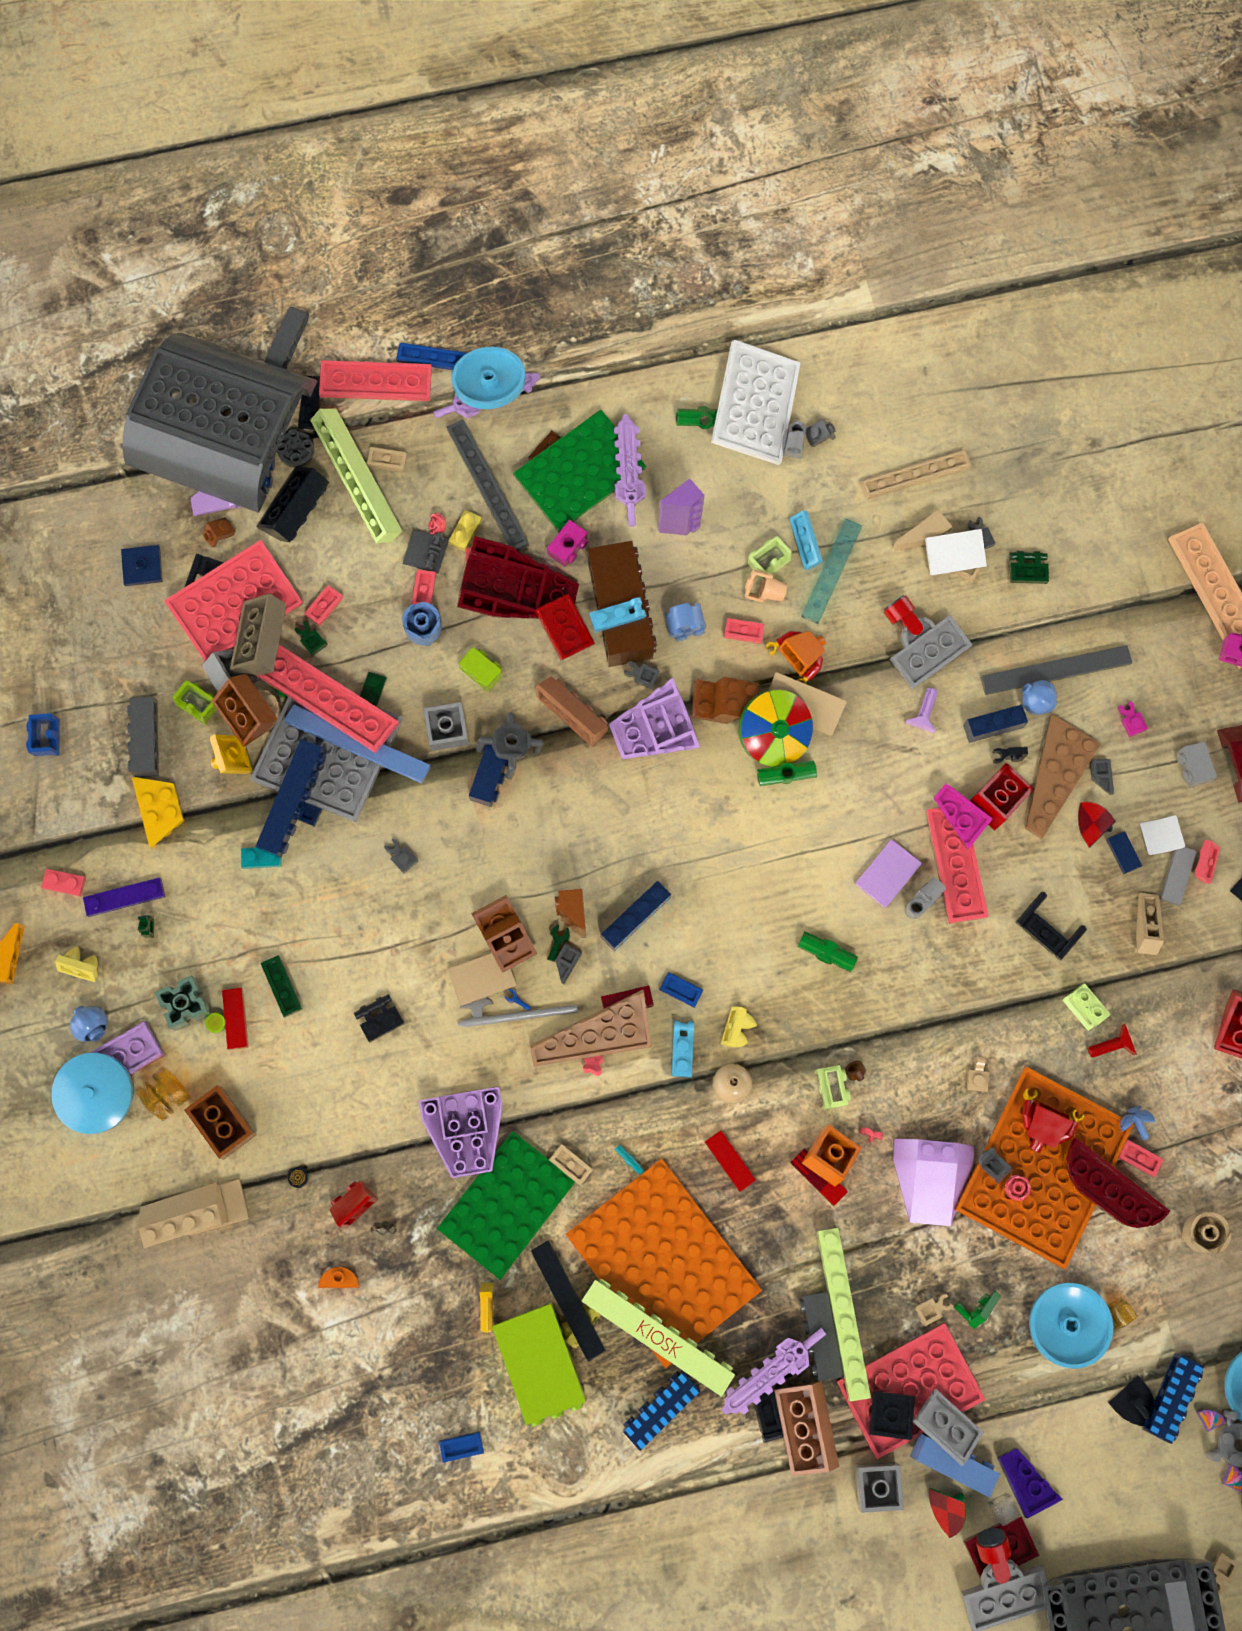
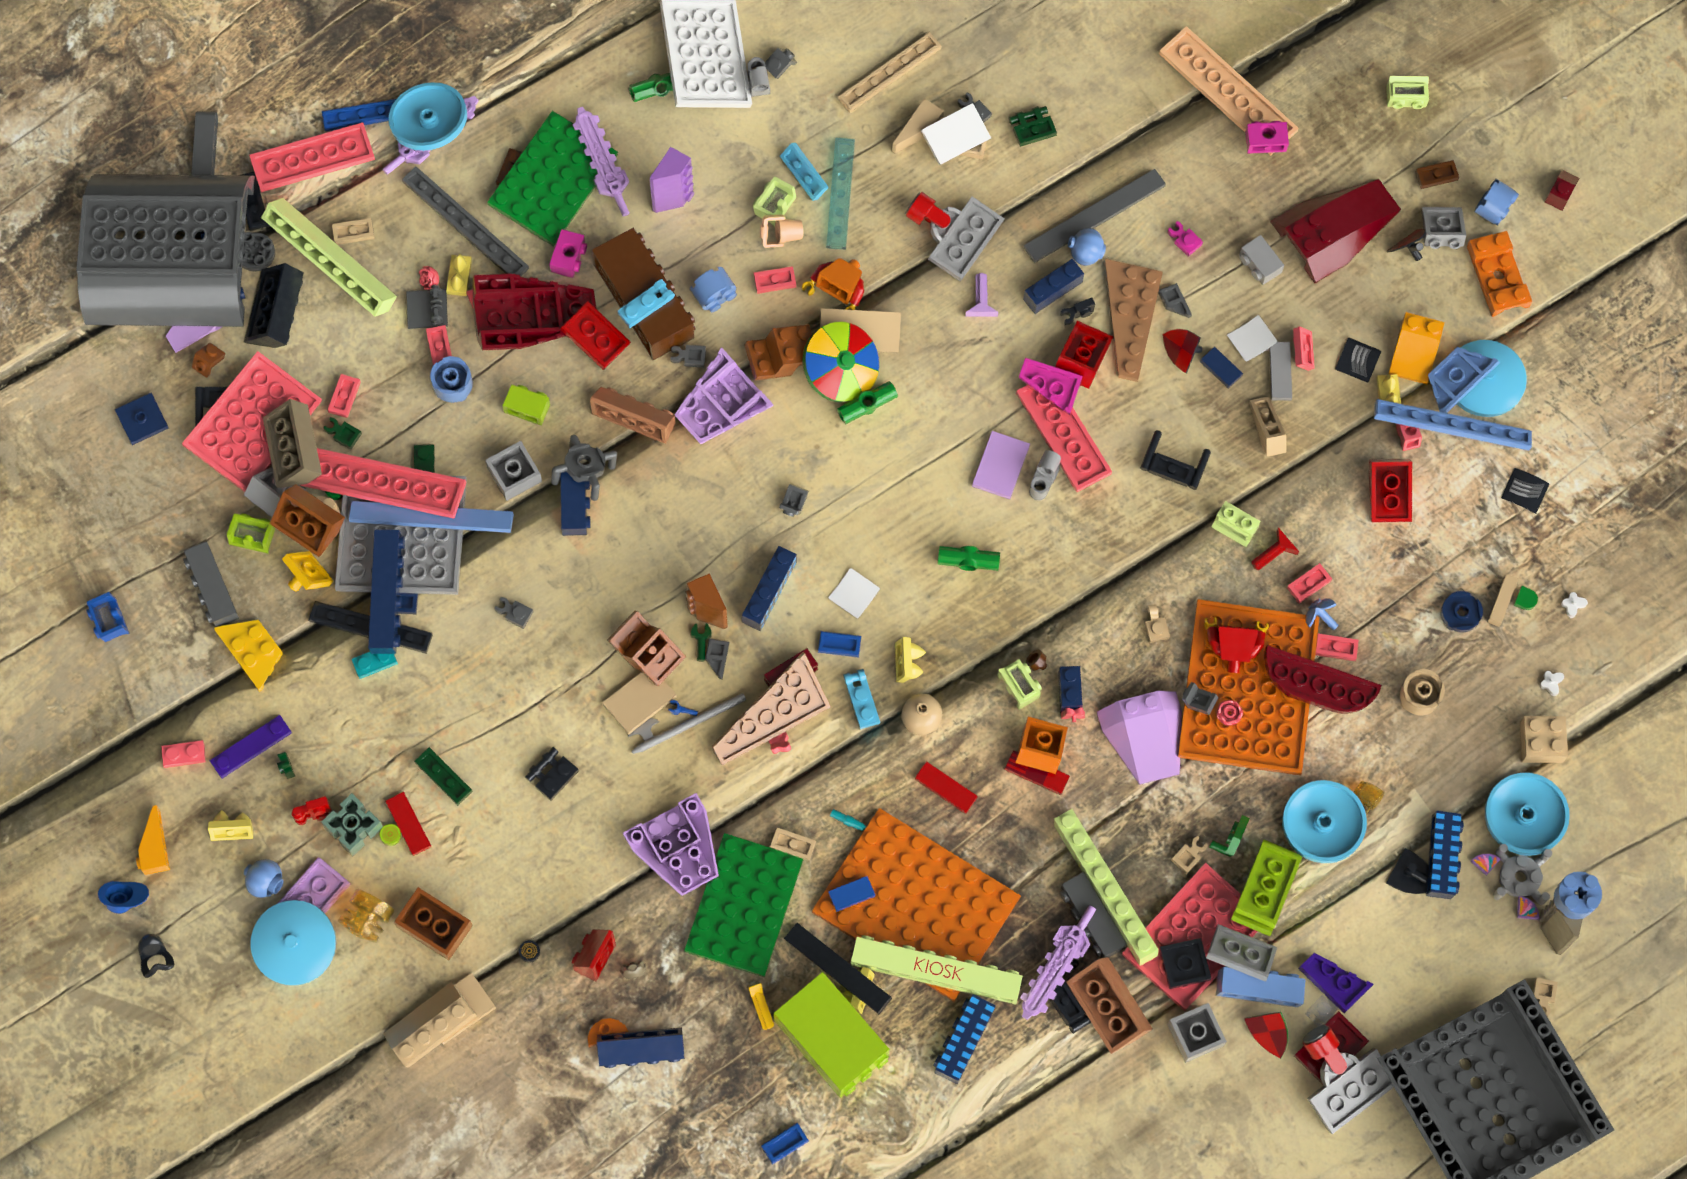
camera: 20 degrees left, 5 degrees down
(157, 978) = (314, 809): none -> red plate
(257, 817) = (359, 624): none -> black tile
(362, 1307) = (640, 1047): none -> dark blue brick
(606, 1233) = (851, 893): none -> blue tile
(687, 841) = (794, 500): none -> dark grey bracket
(711, 946) = (854, 593): none -> white sticker
(877, 1109) = (1070, 687): none -> dark blue brick
(1005, 1354) = (1266, 887): none -> lime hinge
(1135, 1087) = (1309, 583): none -> coral plate

